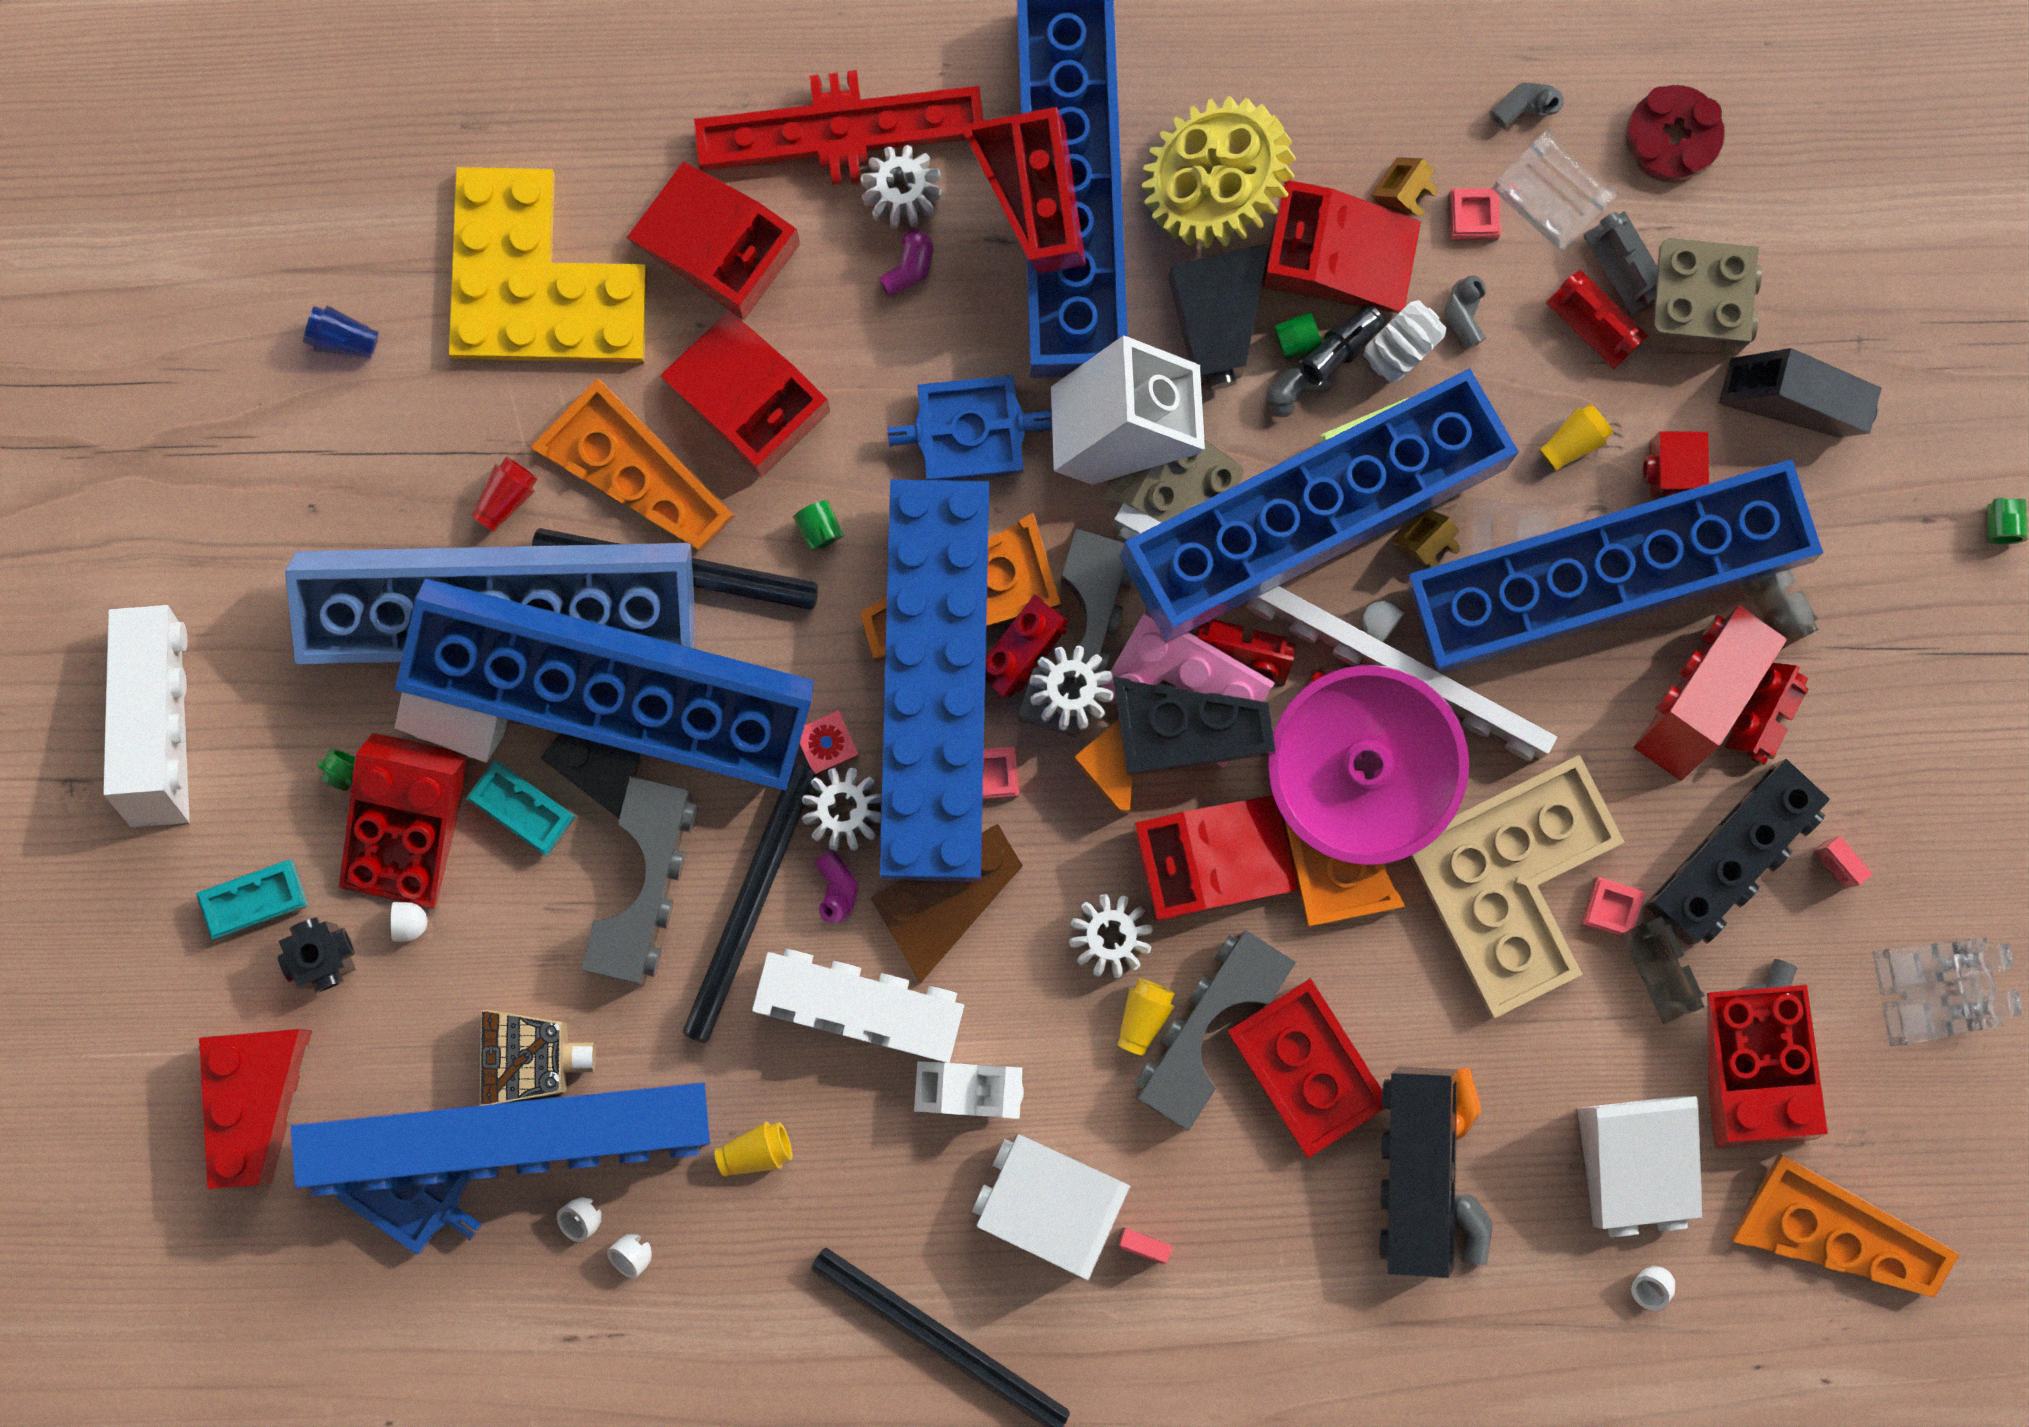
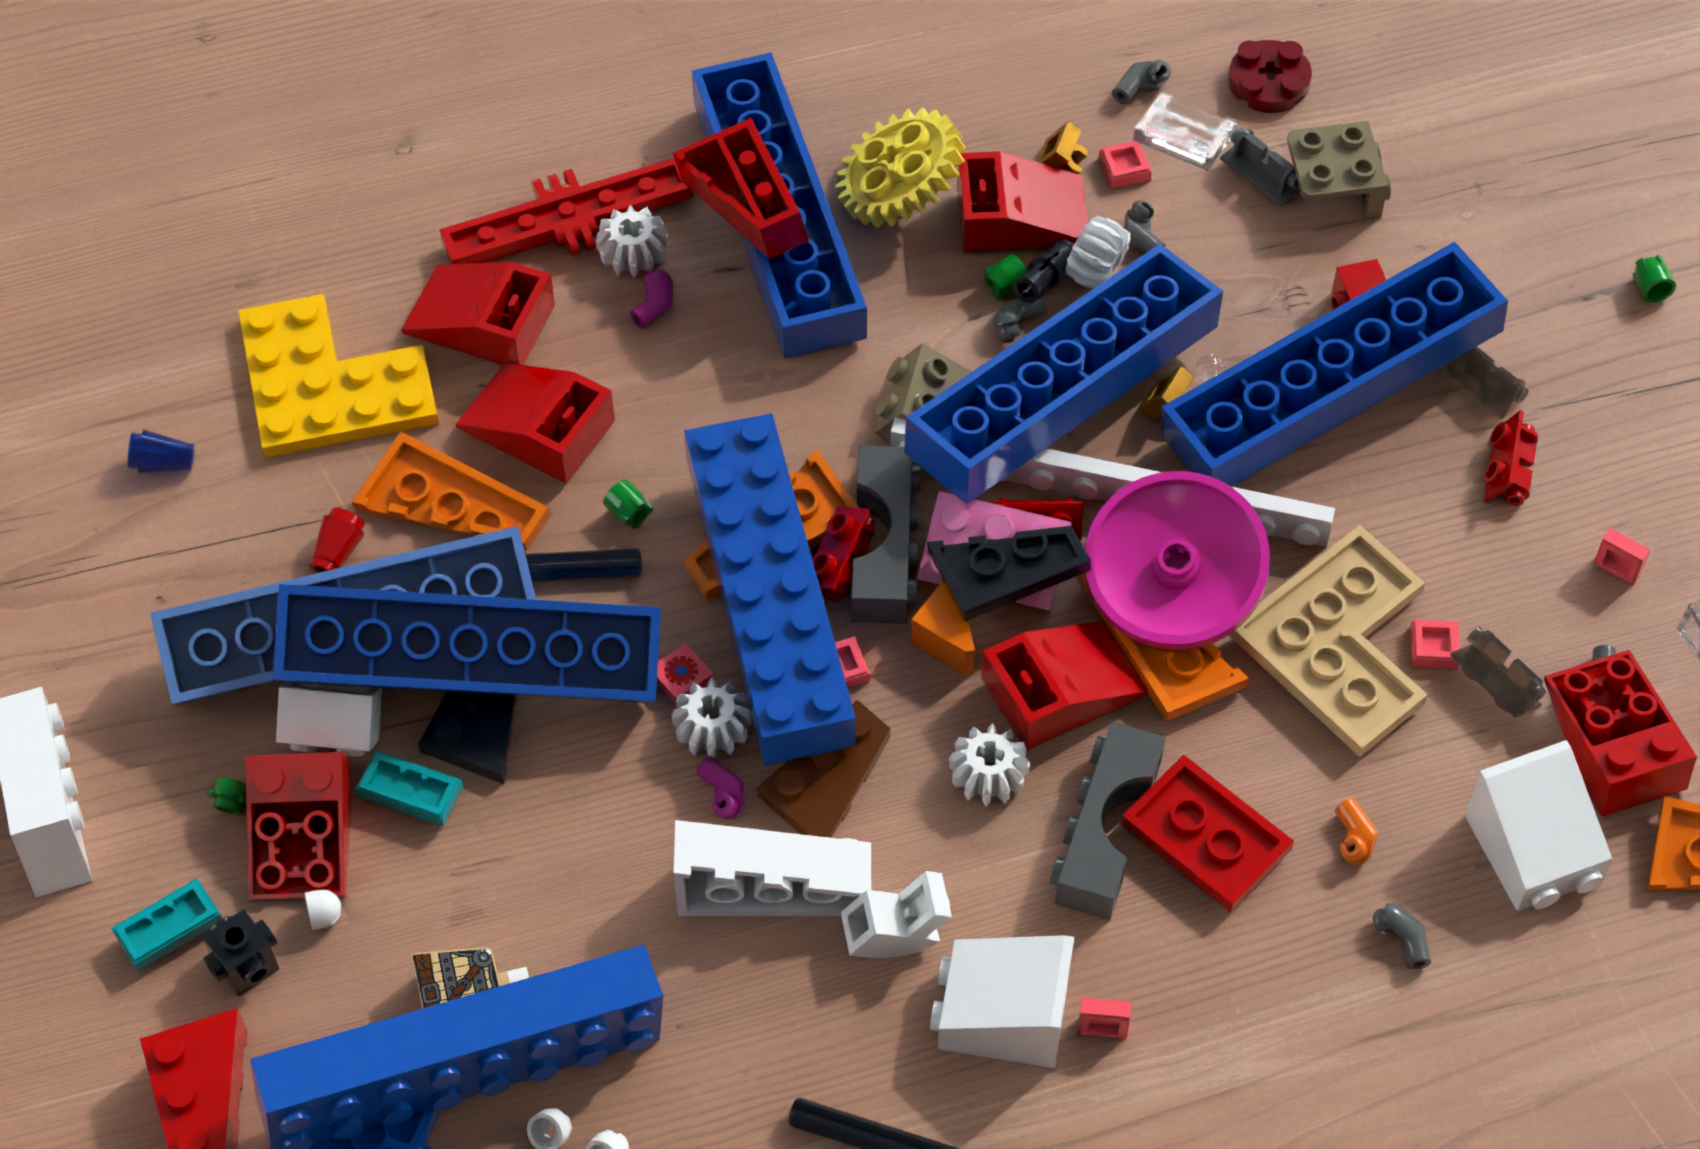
camera: 10 degrees left, 25 degrees down
(626, 943) = (534, 872): dark grey arch -> none
(748, 905) = (644, 824): black axle -> none
(755, 1151) = (706, 1027): yellow cone -> none
(970, 428) = (742, 392): blue plate -> none
(1055, 682) = (892, 557): white gear -> none
(1126, 412) = (874, 345): white slope -> none
(1144, 1015) = (1041, 823): yellow cone -> none
(1218, 310) = (930, 271): black slope -> none
(1381, 619) = (1151, 460): white hinge -> none
(1420, 1171) = (1342, 883): black brick -> none
(1578, 436) = (1270, 294): yellow cone -> none
(1596, 319) = (1256, 214): red hinge -> none
(1653, 1288) = (1589, 949): white hinge -> none
(1711, 693) = (1452, 454): wedge -> none
(1738, 852) = (1529, 565): black brick -> none
(1801, 392) = (1441, 212): black slope -> none

